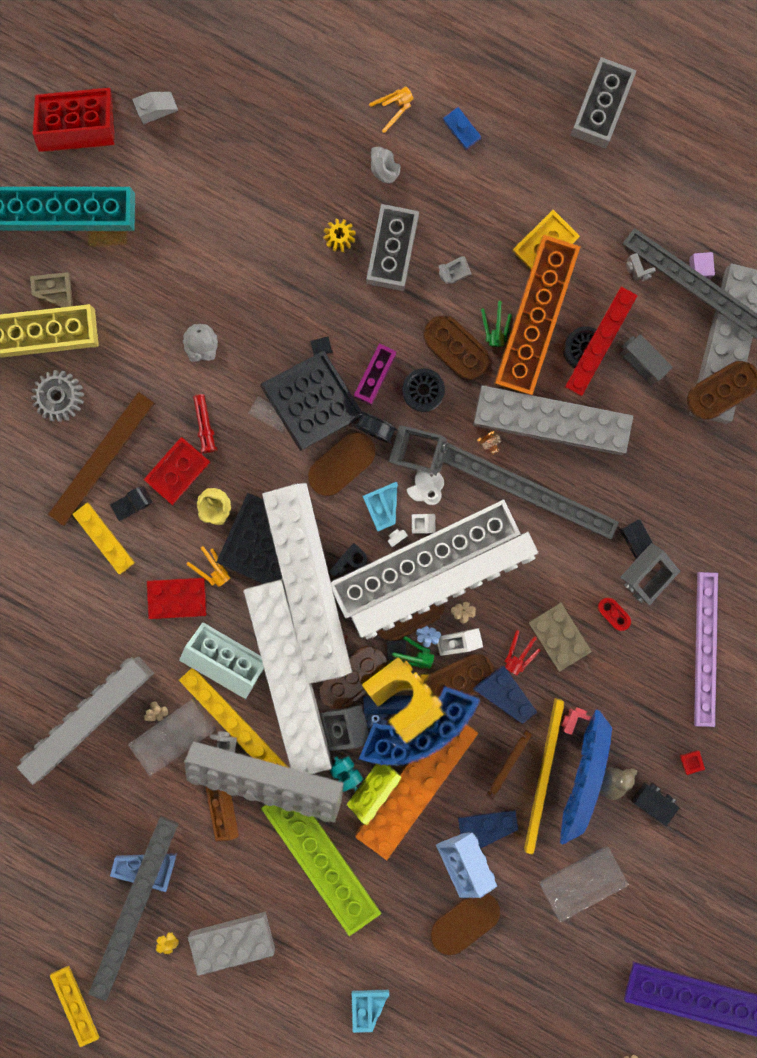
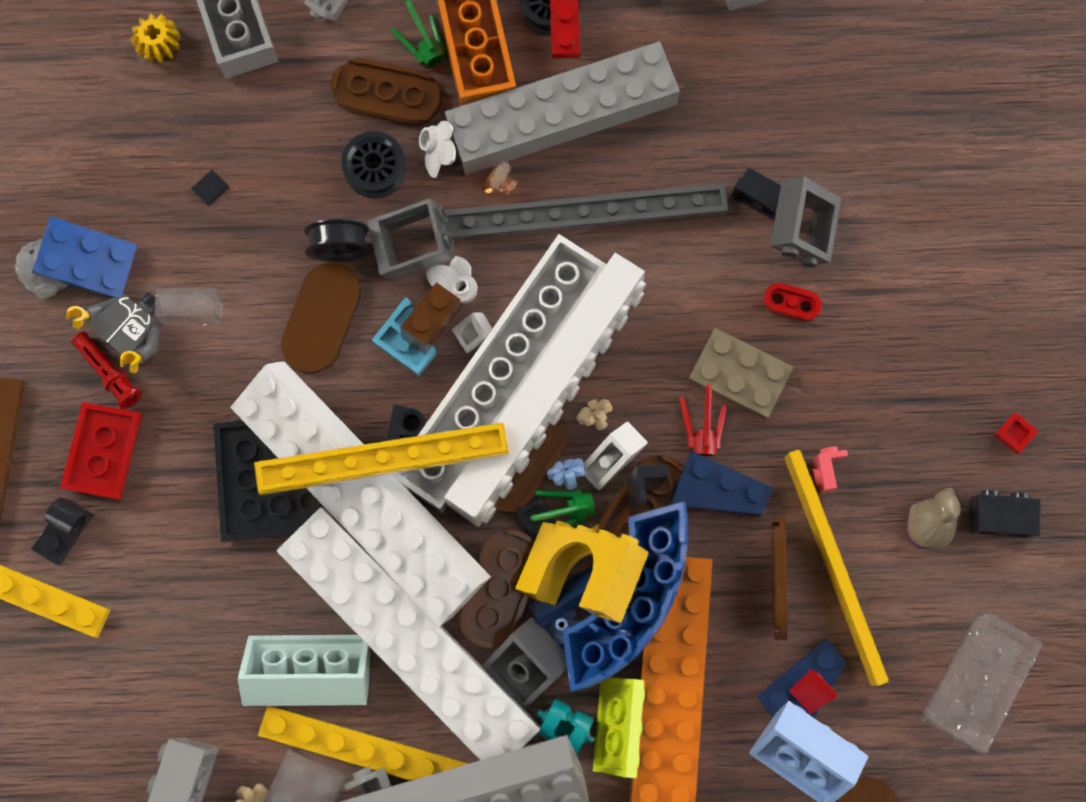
camera: 30 degrees left, 10 degrees down
(176, 598) = (193, 623): red plate -> none
(213, 506) = (176, 468): light yellow hair -> none
(219, 575) = (235, 555): light orange plant -> none
(226, 352) = (84, 258): none -> blue plate
(228, 406) = (123, 326): none -> dark grey torso
(311, 400) = (231, 255): black plate -> none
(329, 576) = (380, 458): none -> yellow tile
(375, 374) = (298, 178): magenta brick -> none
(396, 537) = (448, 367): white plate -> none
(402, 505) = (430, 318): none -> reddish brown brick
(460, 670) = (643, 479): none -> black panel
(466, 402) = (437, 146): none -> white plate
(489, 835) = (813, 691): none -> red slope
(588, 778) = (897, 534): blue brick -> none
(706, 649) = (938, 281): lavender tile -> none

